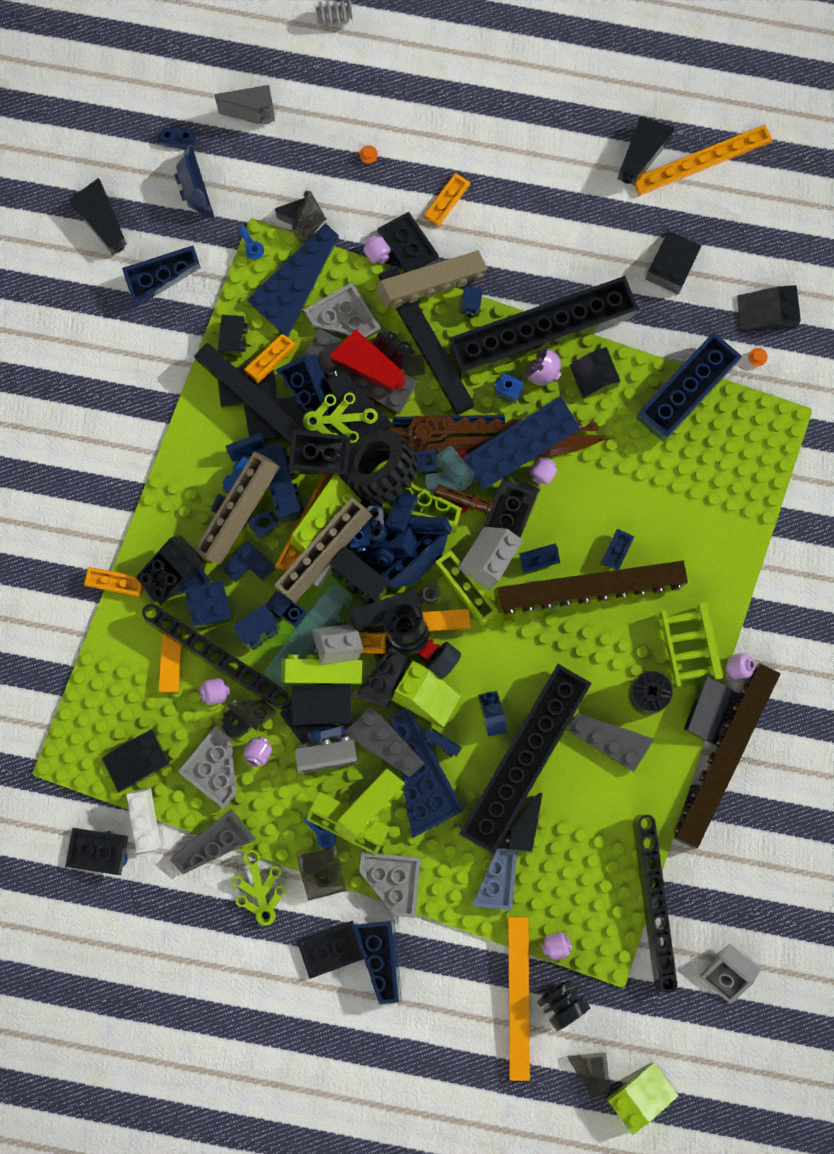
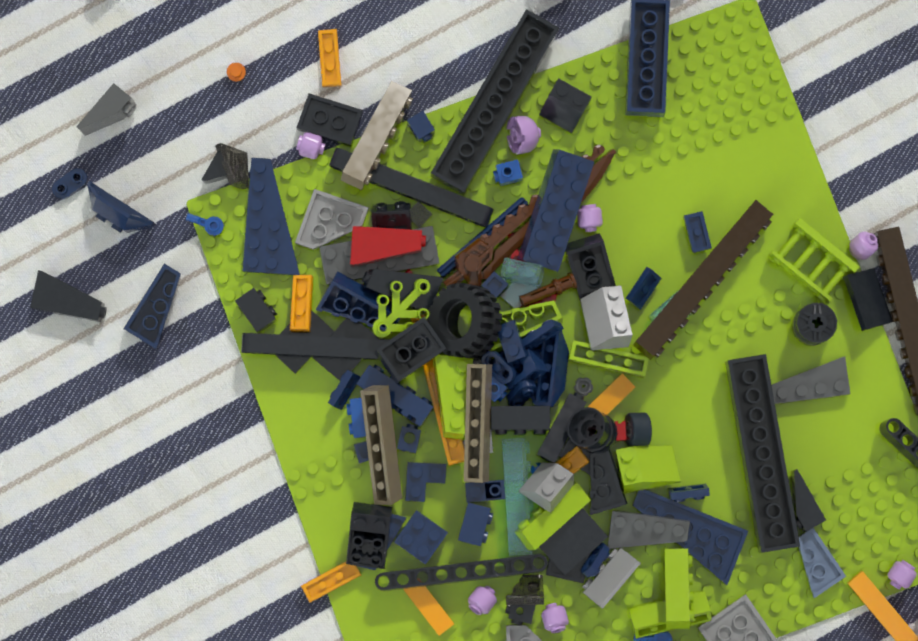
camera: 40 degrees left, 5 degrees up
(492, 713) = (708, 438): dark blue slope -> none

